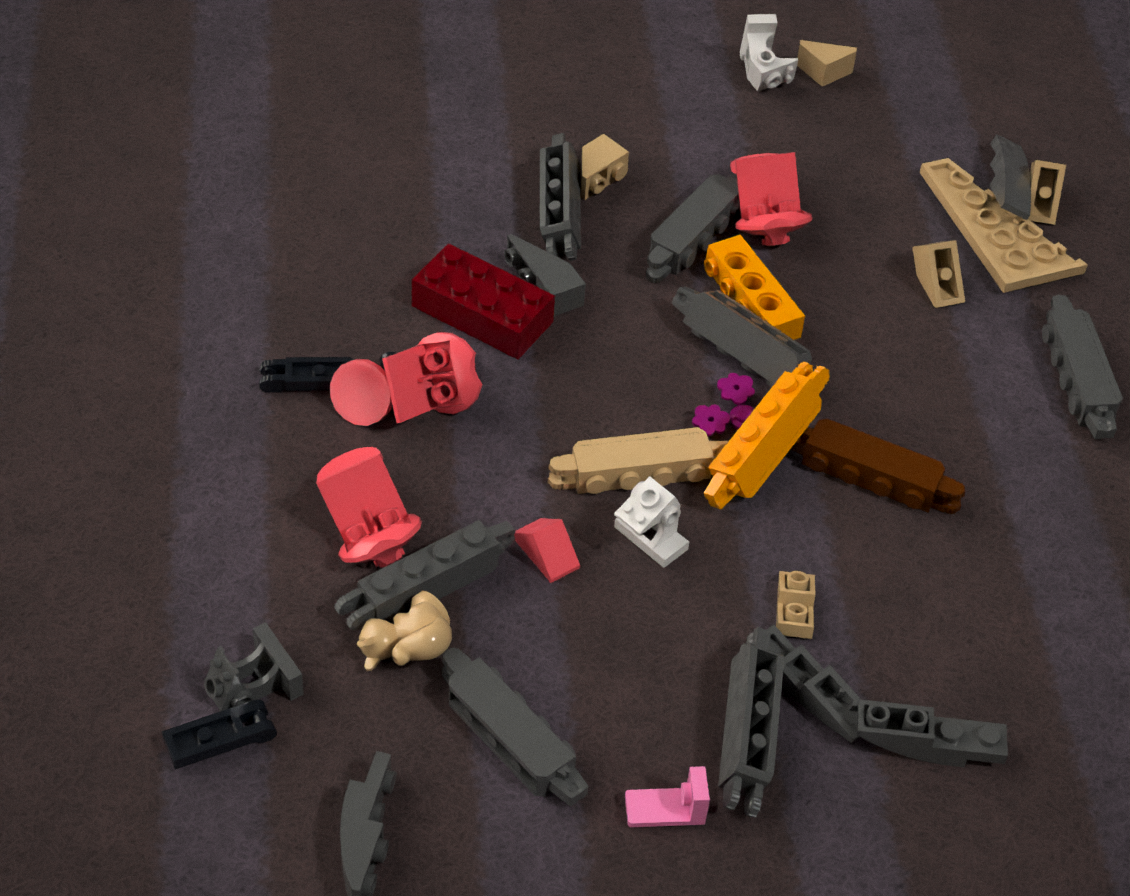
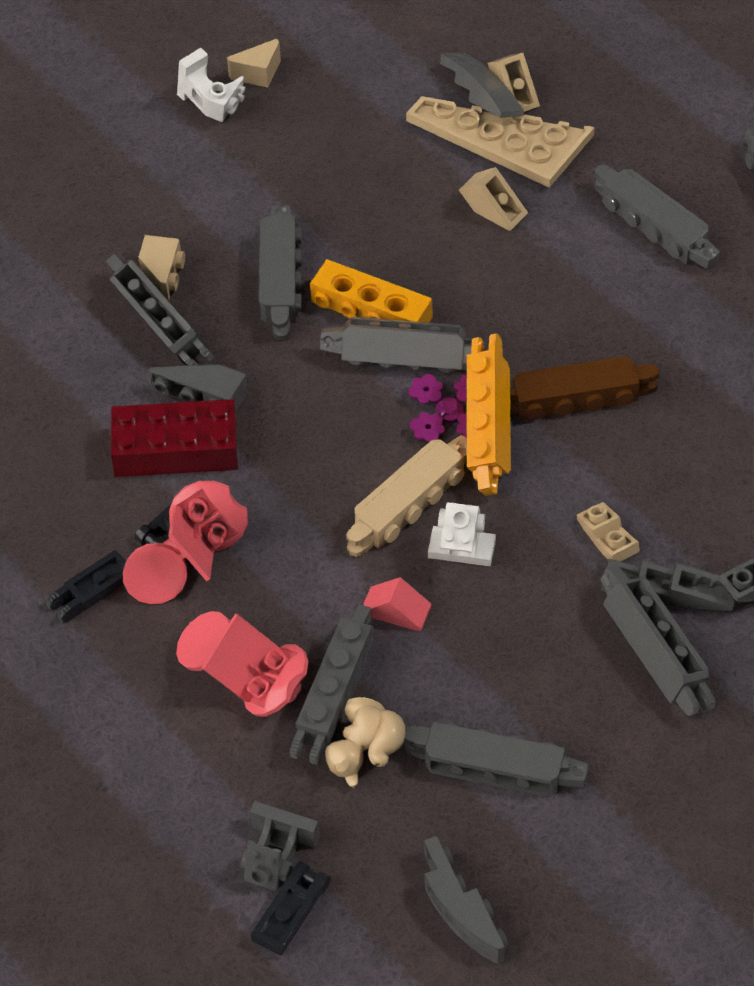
camera: 30 degrees left, 5 degrees up
(670, 805) = (653, 737): bright pink bracket -> none
(769, 196) = (318, 210): coral piece -> none

